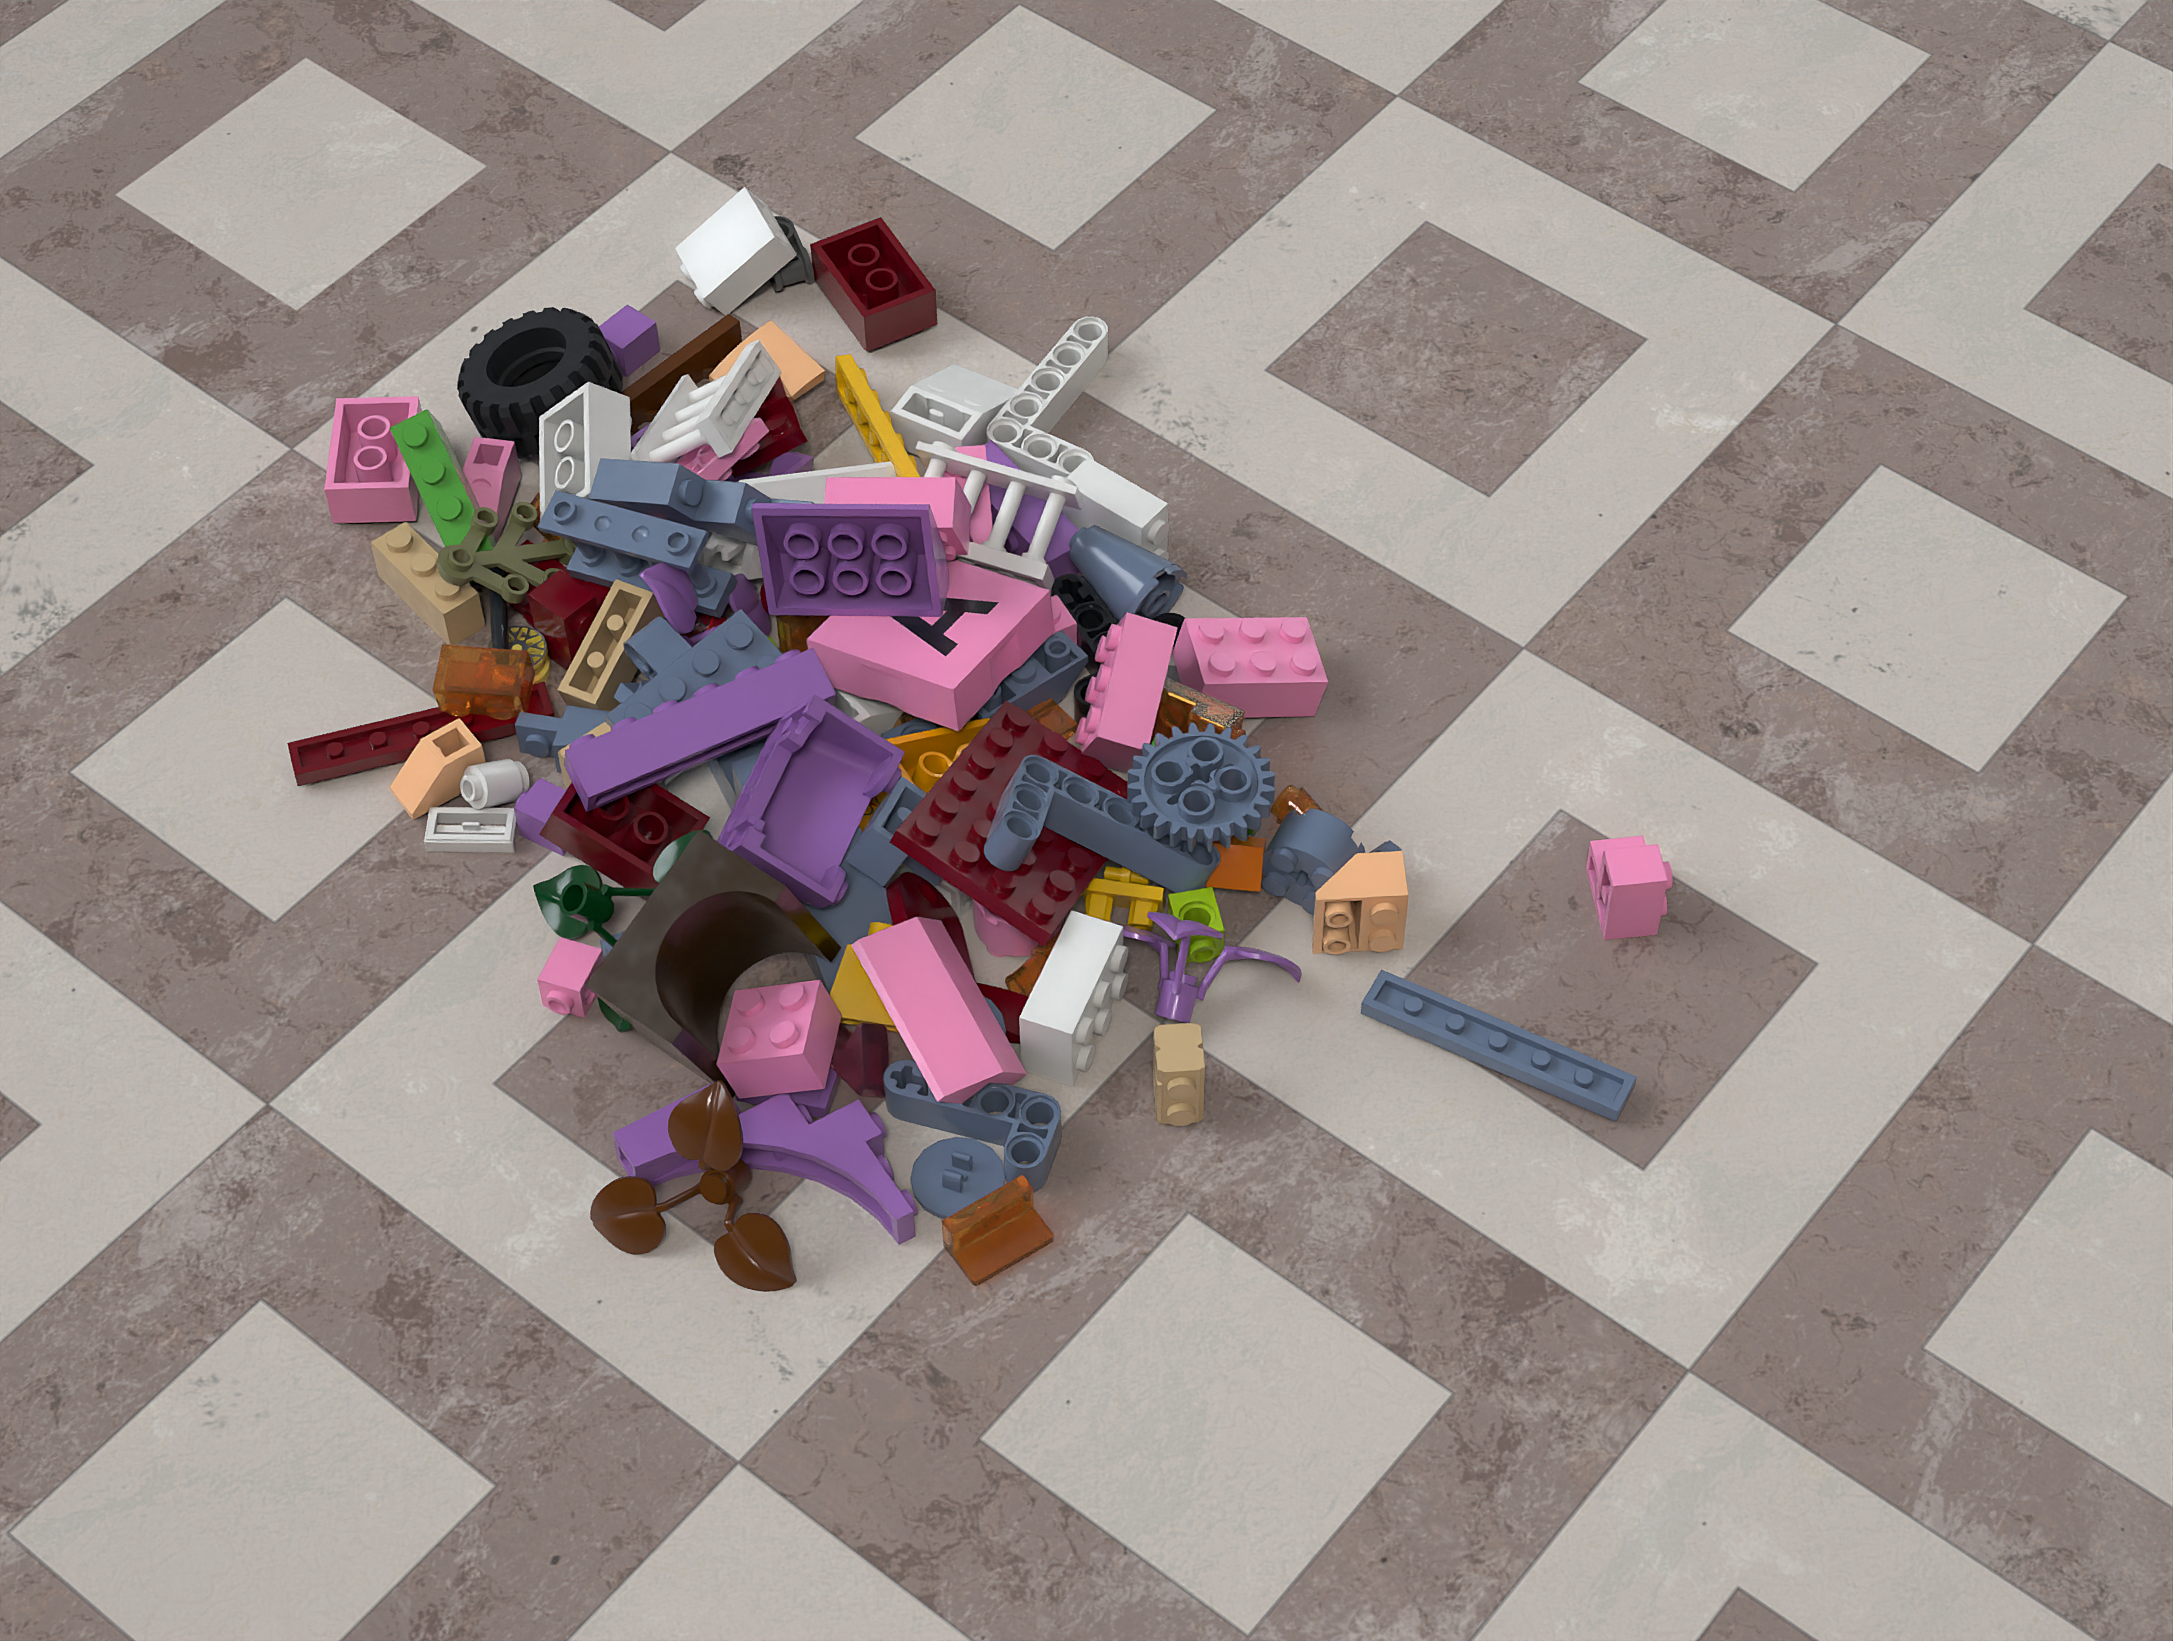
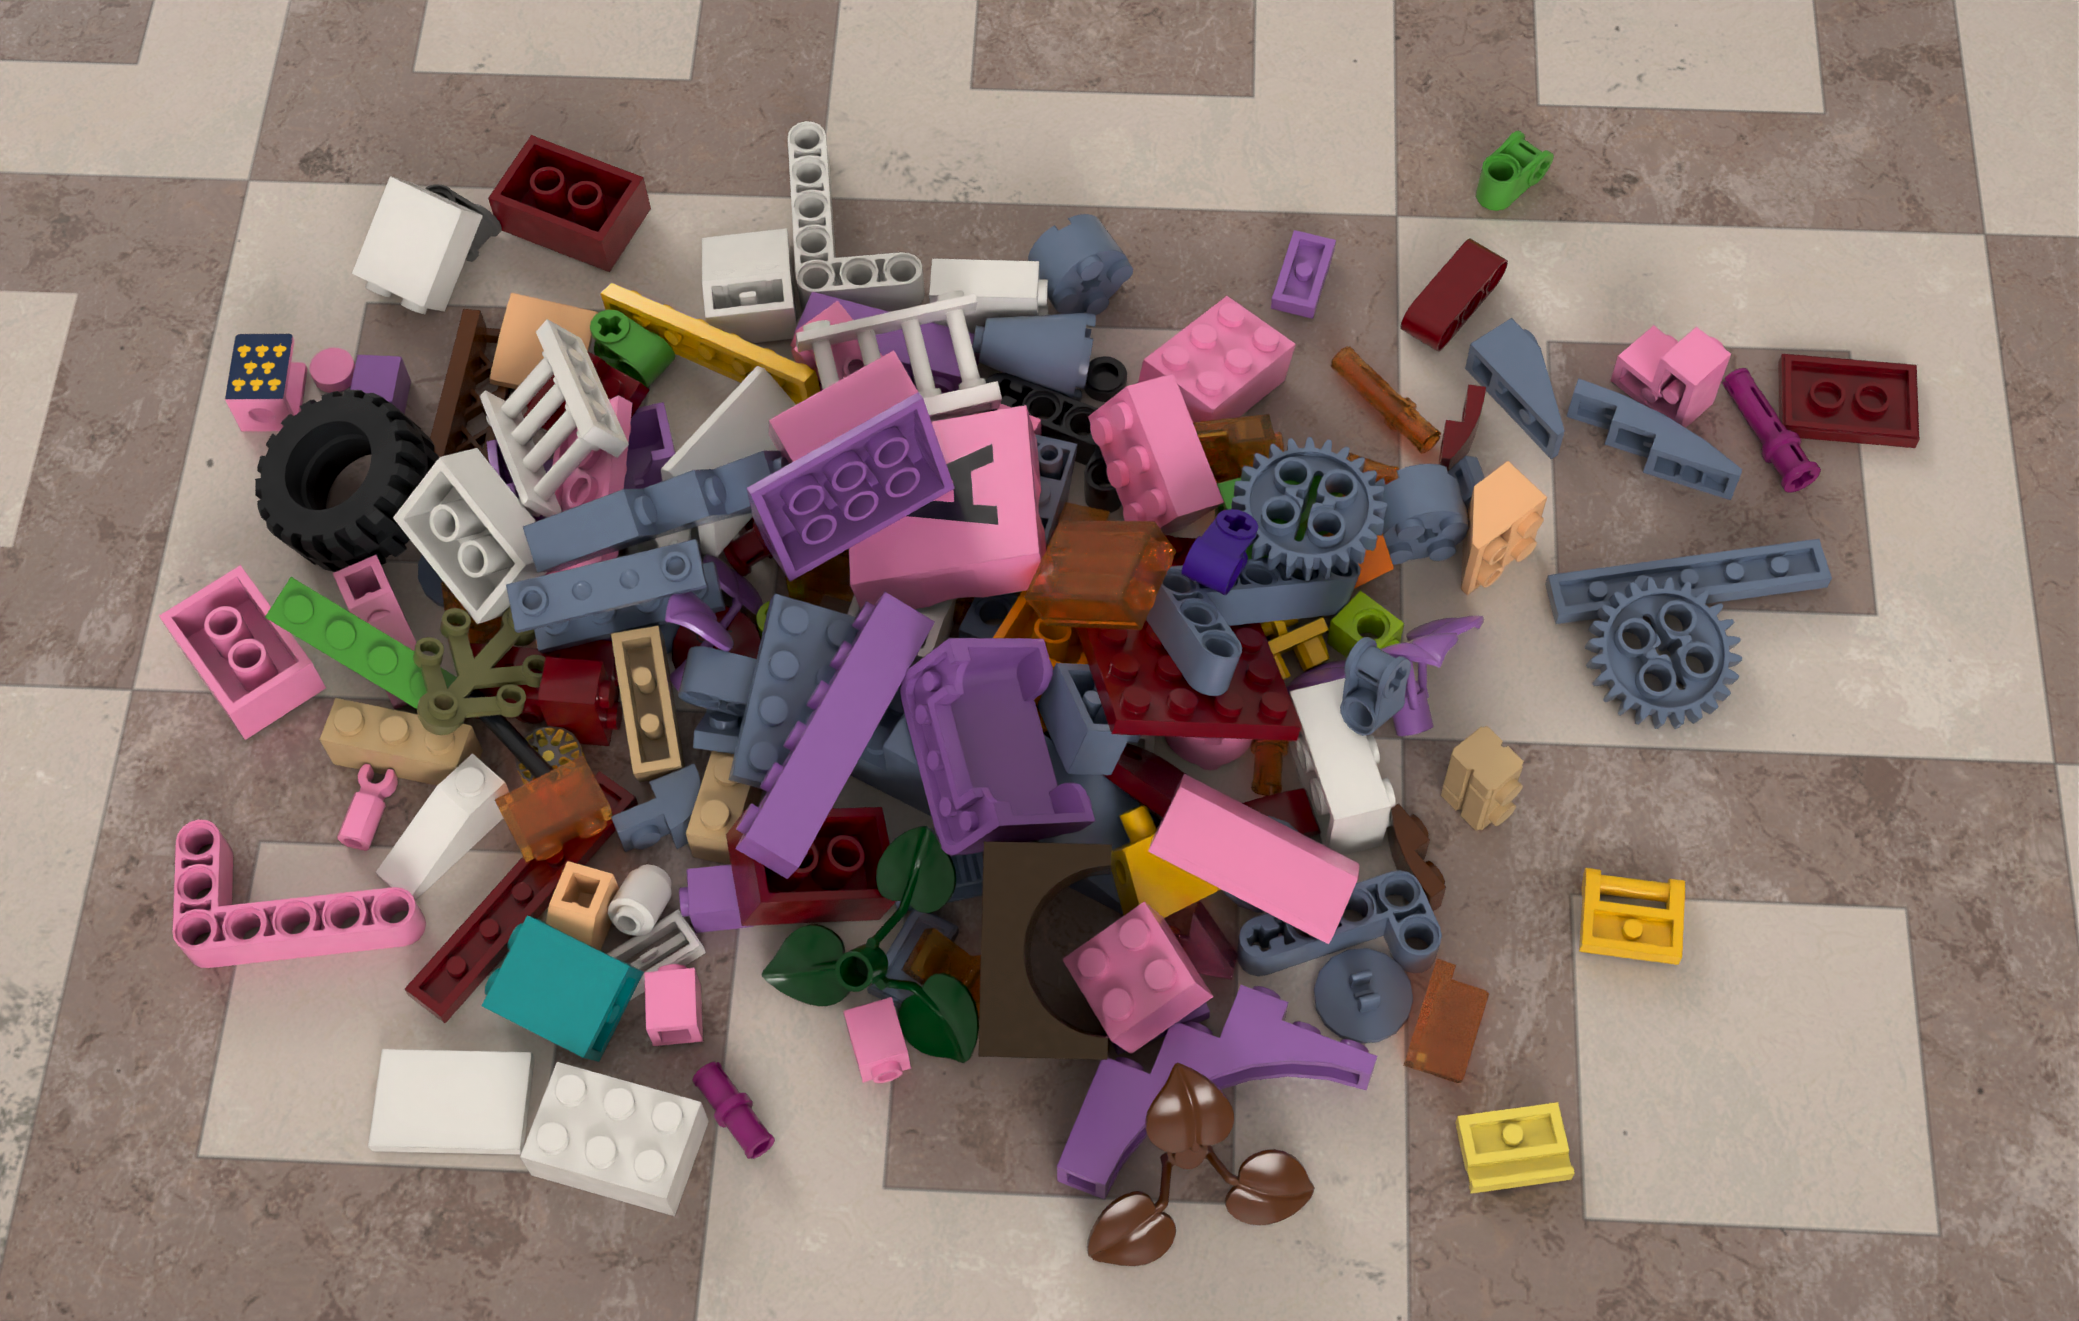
camera: 35 degrees left, 10 degrees up
(207, 634) = (276, 917): none -> bright pink beam
(257, 839) = (451, 1101): none -> white tile
(337, 926) = (615, 1138): none -> white brick
(371, 614) = (366, 809): none -> bright pink bar
(387, 807) = (561, 988): none -> teal panel
(404, 657) = (445, 827): none -> white slope
(434, 961) = (733, 1110): none -> magenta pin
(451, 865) = (673, 1005): none -> bright pink brick
(551, 283) = (264, 381): none -> piece
(606, 306) = (332, 370): none -> bright pink tile
(827, 409) = (630, 346): none -> bright green piece
(966, 1349) = (1514, 1147): none -> light yellow plate
(986, 731) = (1100, 574): none -> clear orange brick
(1080, 1103) = (1408, 848): none -> reddish brown slope
(1091, 769) = (1220, 552): none -> dark purple piece
(1123, 932) = (1372, 687): none -> sand blue piece
(1208, 1262) = (1632, 929): none -> yellow plate
(1213, 534) = (1080, 265): none -> sand blue brick
(1377, 785) = (1397, 411): none -> clear orange pin
(1397, 644) = (1303, 274): none -> medium lavender plate
(1416, 831) = (1460, 435): none -> dark red slope
(1463, 1086) = (1625, 667): none -> sand blue gear
(1500, 816) = (1517, 379): none -> sand blue slope
(1506, 726) = (1454, 294): none -> dark red beam
(1572, 932) = (1670, 448): none -> sand blue slope
(1643, 660) = (1511, 172): none -> bright green piece
(1676, 991) = (1778, 444): none -> magenta pin
(1775, 997) = (1849, 400): none -> dark red tile

